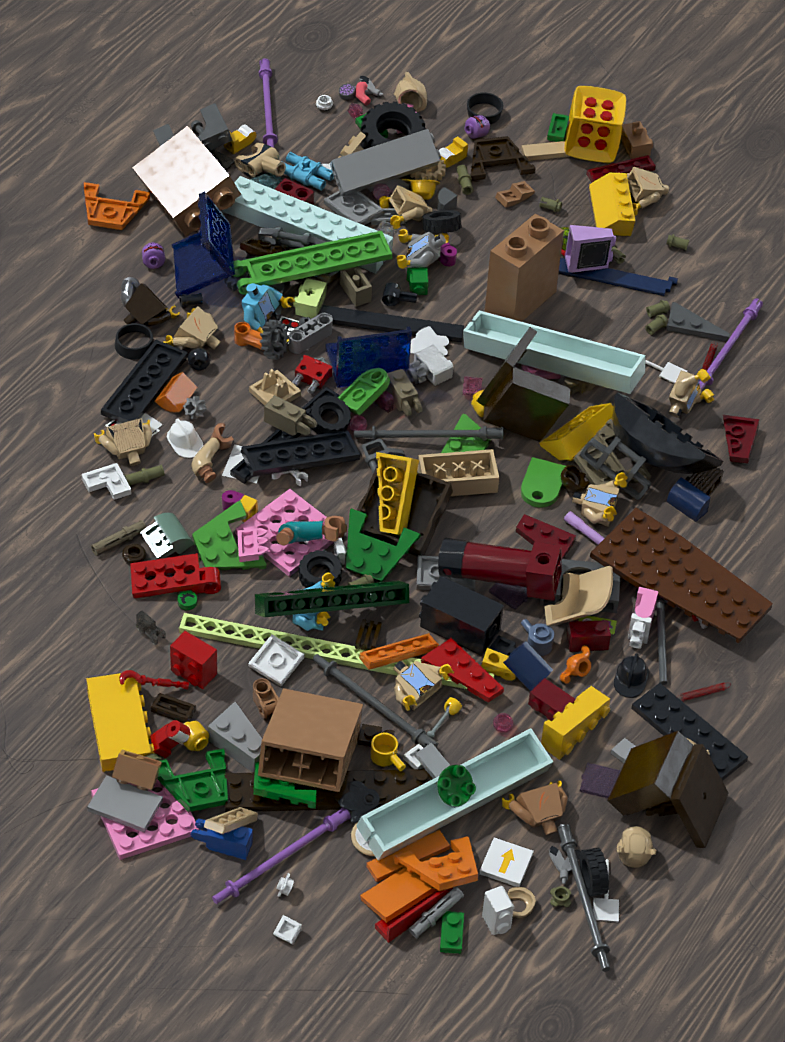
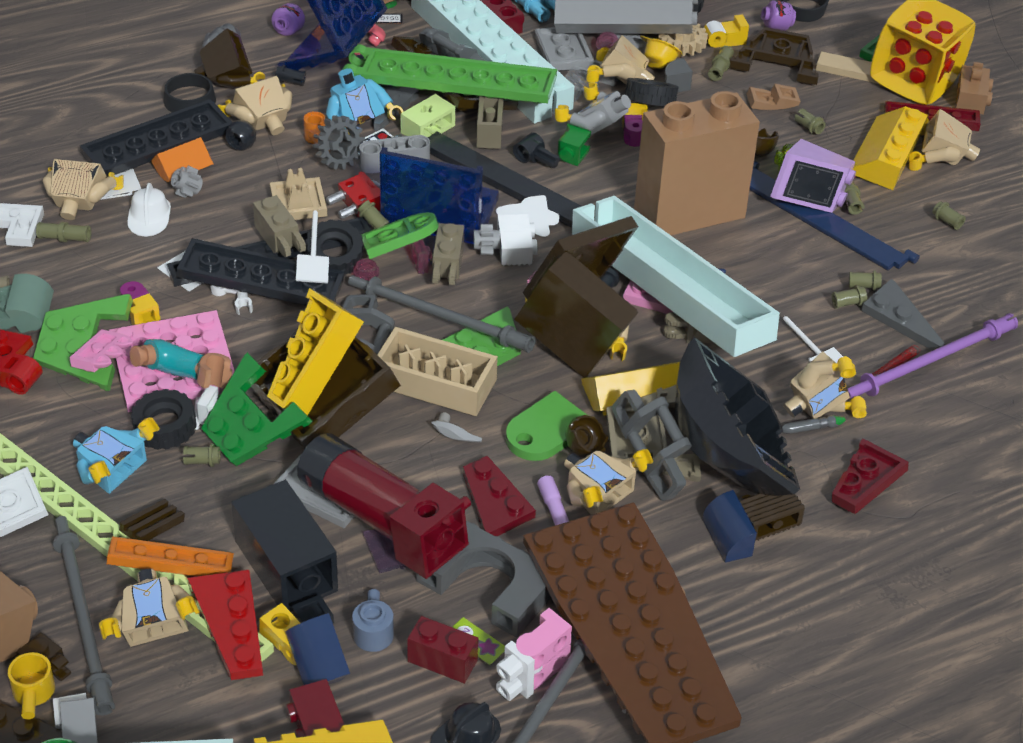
camera: 30 degrees right, 5 degrees down
(202, 462) = (140, 240): piece -> none
(329, 435) = (312, 267): none -> white piece
(331, 598) = (124, 450): dark green brick -> none
(334, 384) = (372, 215): none -> olive pin
(452, 707) = (175, 665): hinge -> none
(491, 507) = (452, 431): none -> light grey bar
(503, 722) = (229, 718): clear pink plate -> none
(577, 665) = (395, 683): orange piece -> none
(581, 596) = (468, 592): tan panel -> none
(690, 416) = (813, 424): none -> dark grey piece

